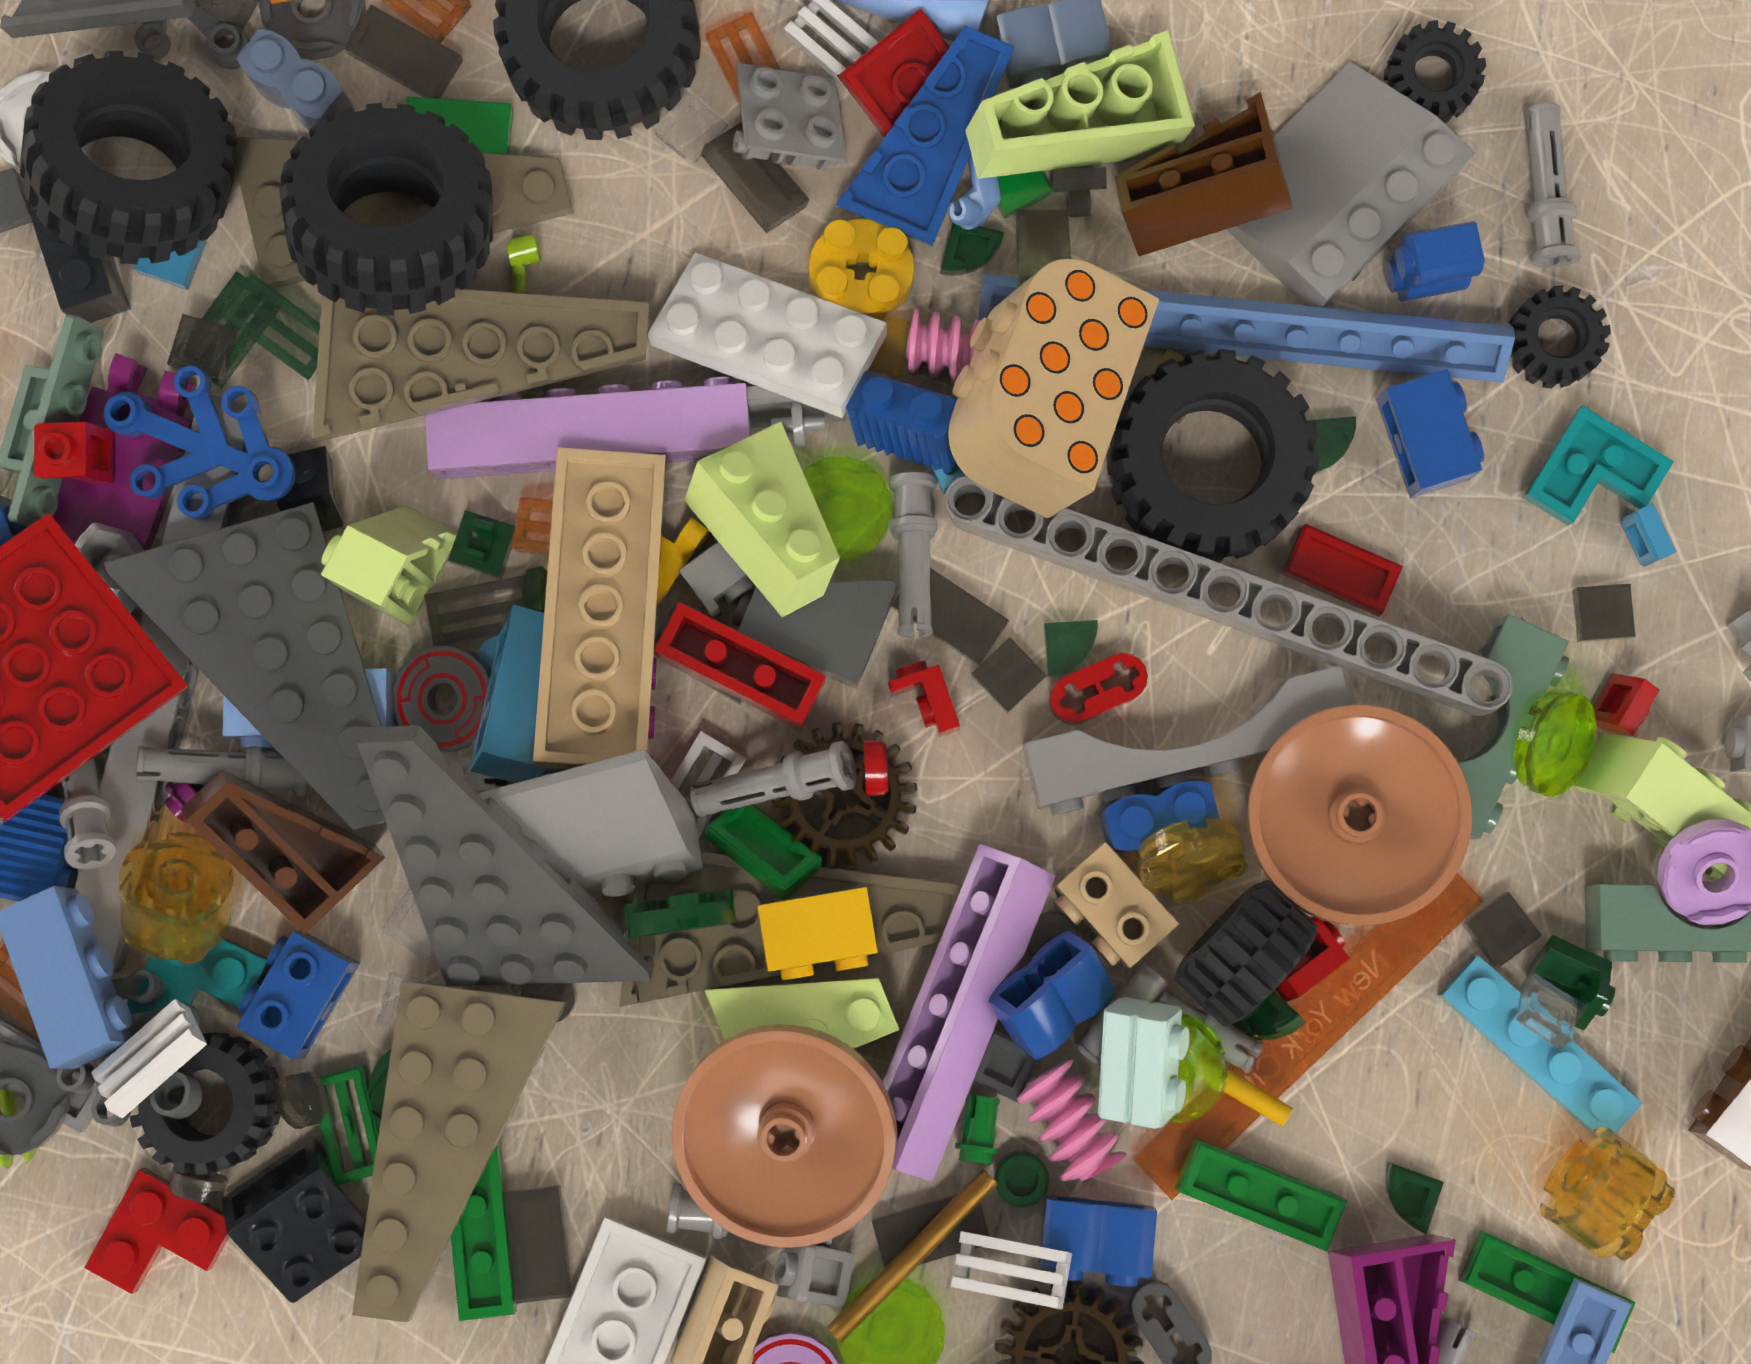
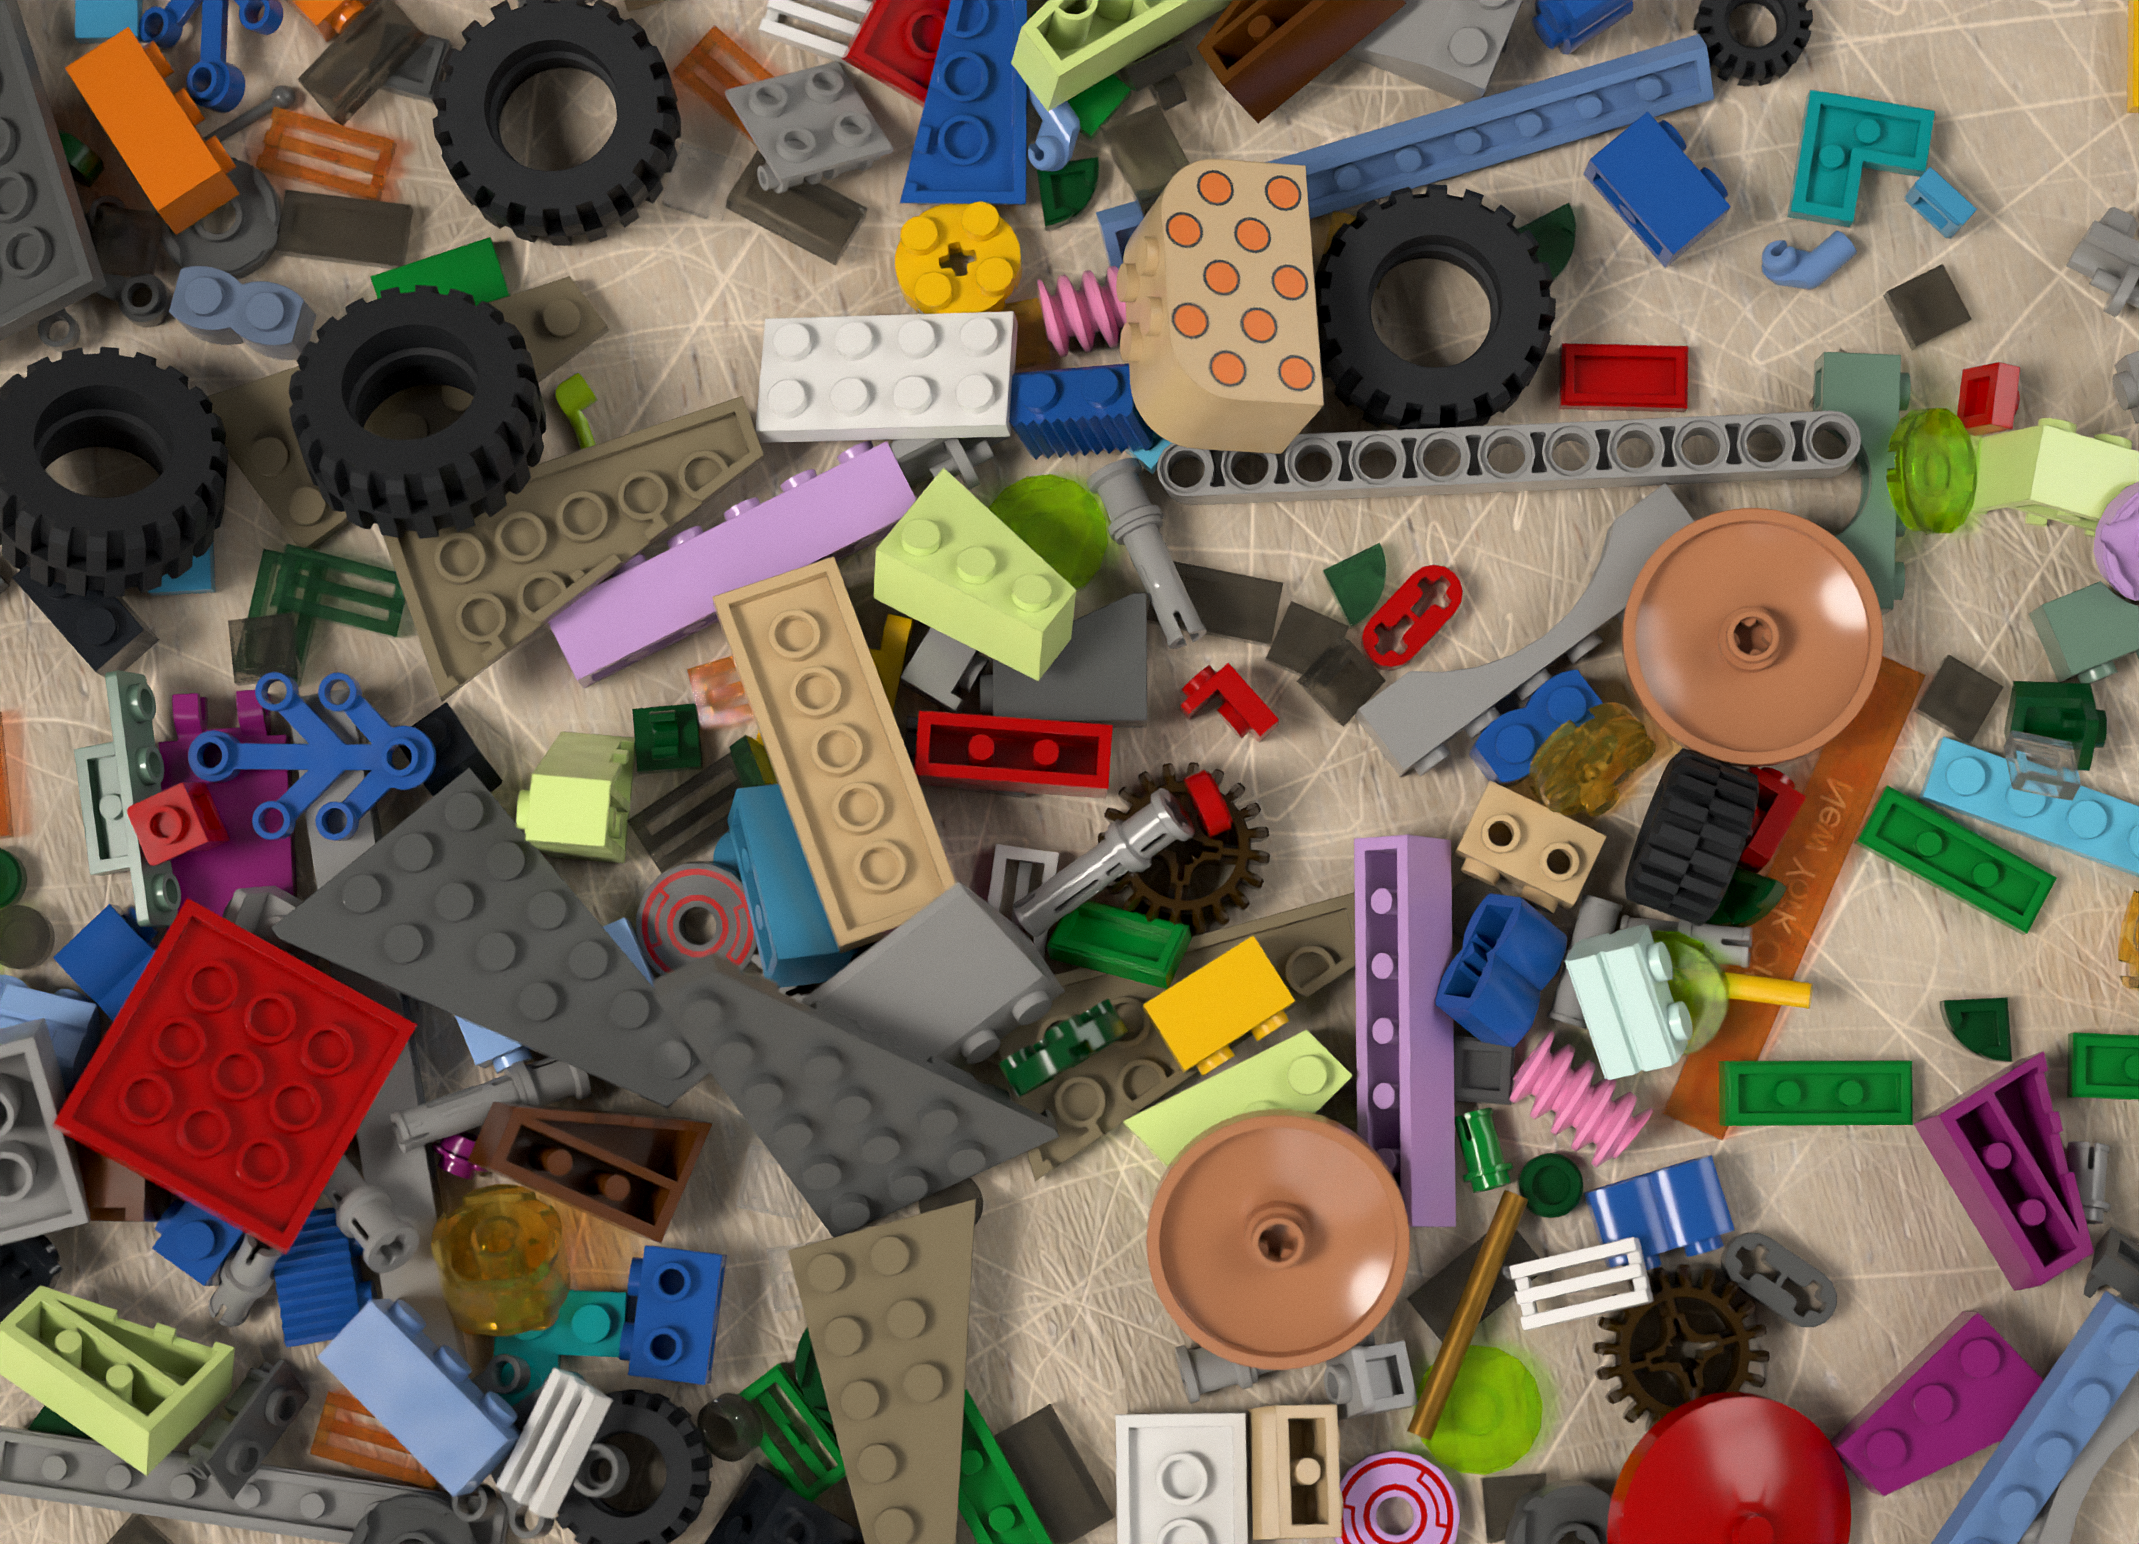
camera: 20 degrees left, 0 degrees up
(1022, 715) = (1341, 680): none -> clear smoke tile
(1447, 1056) = (1955, 860): none -> green tile
(1521, 544) = (1804, 268): none -> medium blue arm

